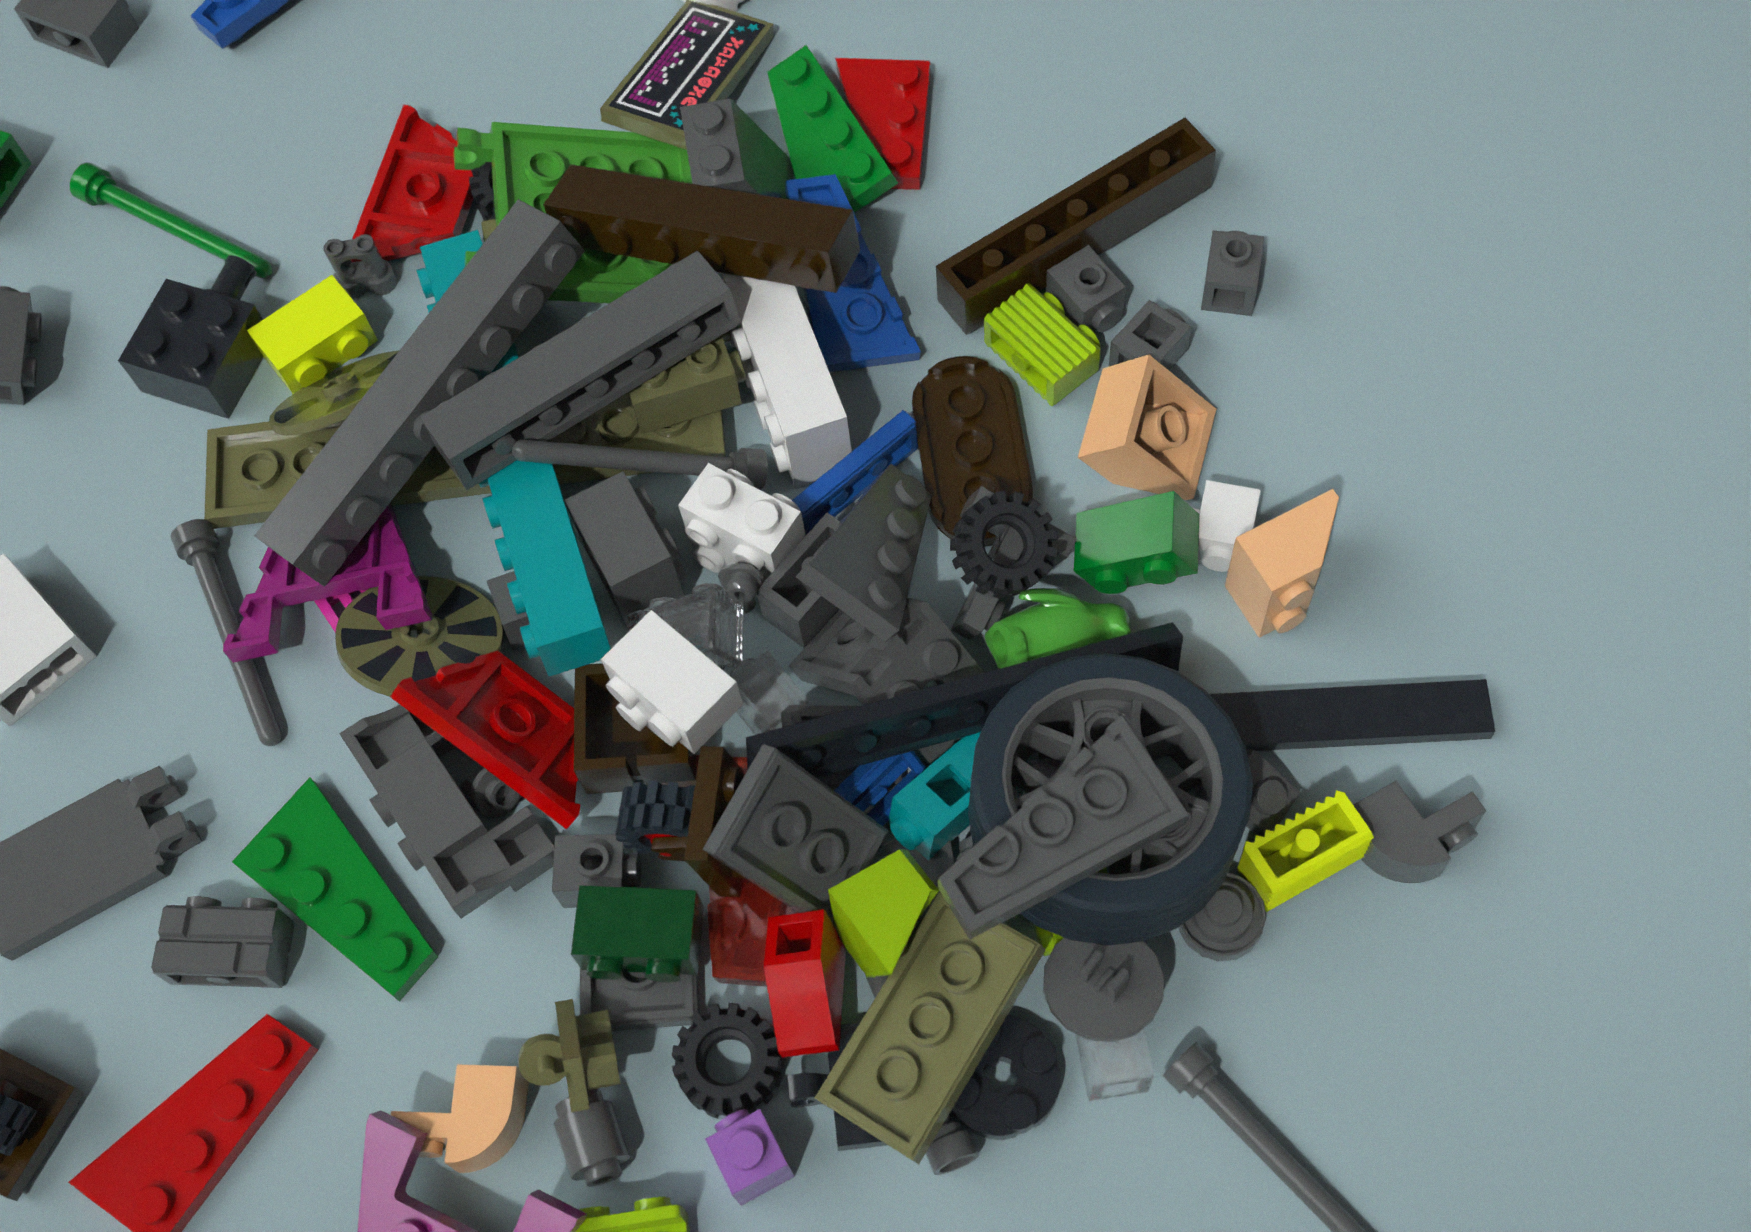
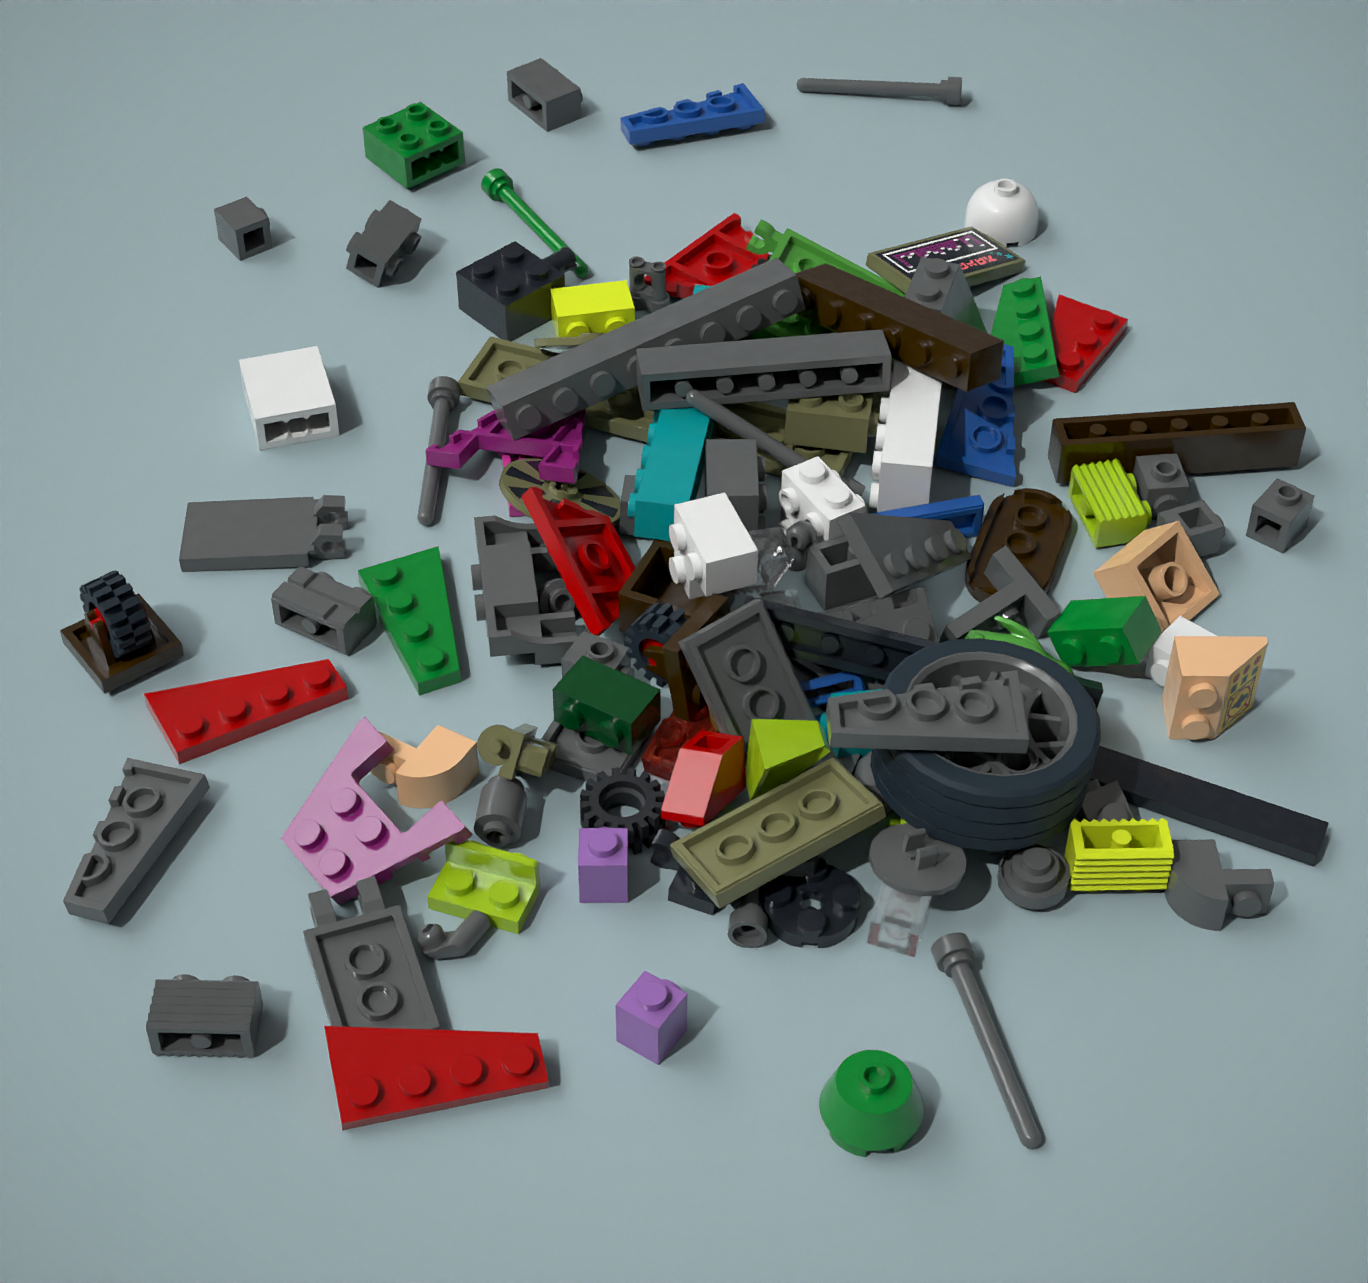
camera: 20 degrees right, 20 degrees down
(1026, 521) = (1010, 562): black tyre -> none

